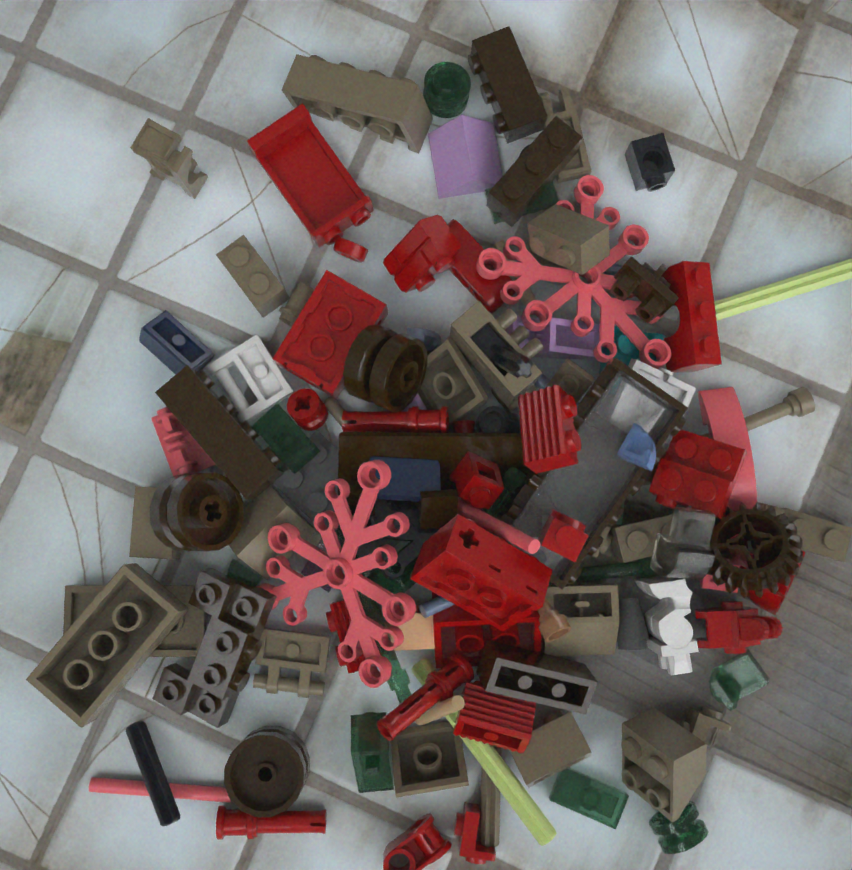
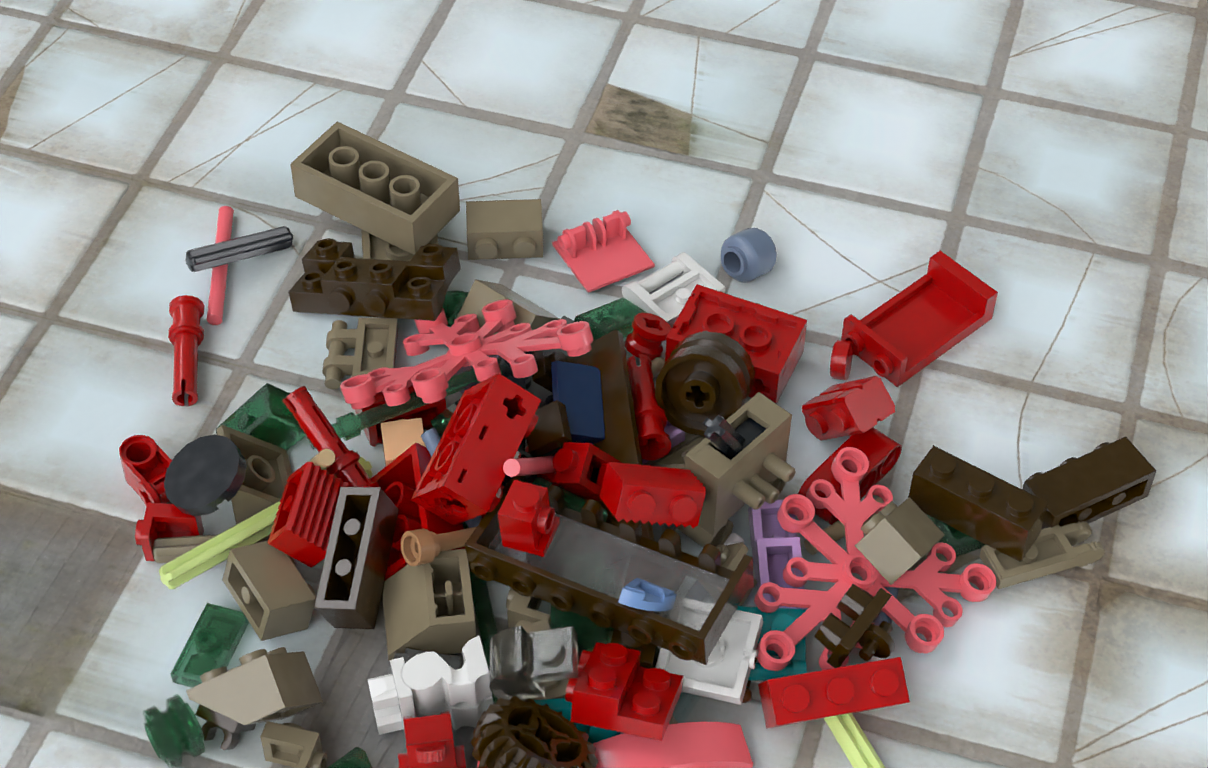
camera: 80 degrees right, 35 degrees down
(159, 148) = (893, 210): dark tan piece -> none
(174, 344) = (701, 230): dark blue slope -> none
(196, 512) = (542, 246): dark brown wheel -> none
(219, 308) = (748, 254): none -> sand blue head
(220, 432) = (607, 258): dark brown brick -> none
(253, 276) = (790, 275): dark tan brick -> none
(255, 788) = (243, 334): dark brown wheel -> none
(360, 99) = (1020, 352): dark tan wedge -> none
(446, 76) = (1060, 429): clear green wheel -> none
(450, 808) = (205, 475): none -> black tile
(464, 156) = (997, 450): lavender slope -> none
(649, 149) = (1047, 642): black brick -> none

